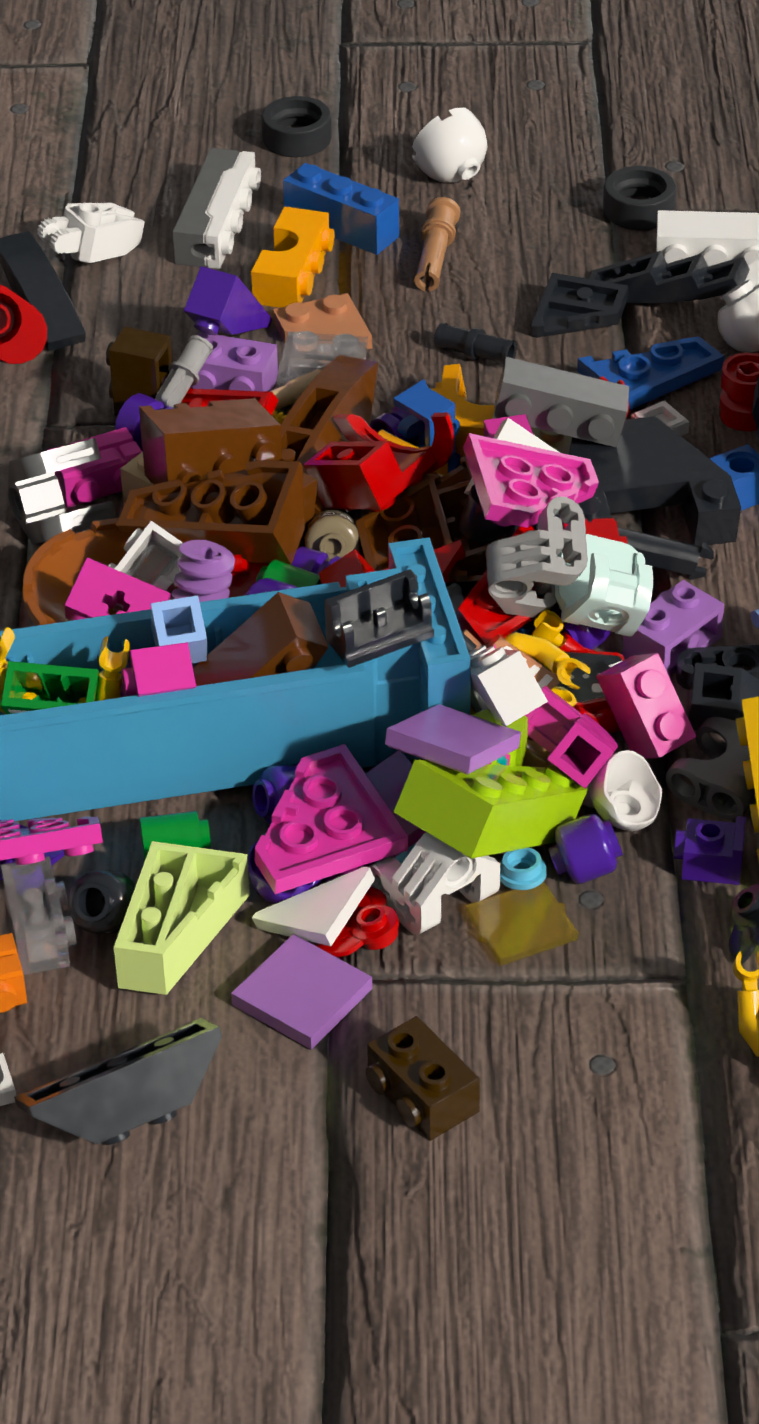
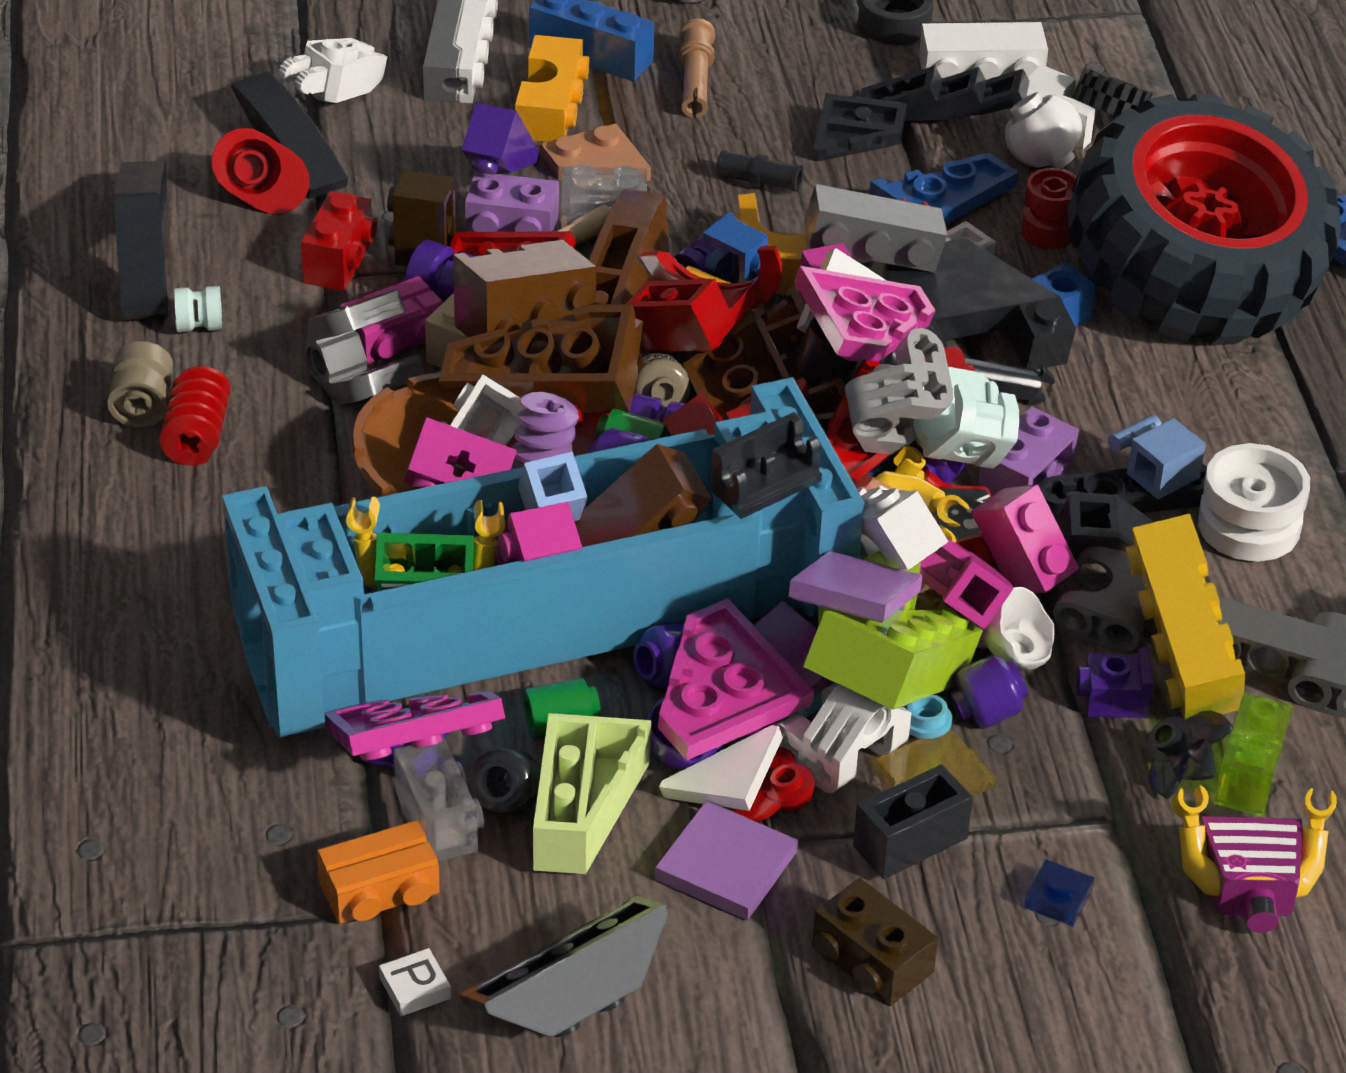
camera: 10 degrees left, 0 degrees up
(60, 390) = (337, 240): none -> red brick
(184, 371) = (470, 214): light grey axle -> none
(481, 966) = (912, 821): none -> black brick
(615, 1045) = (1059, 892): none -> clear blue plate

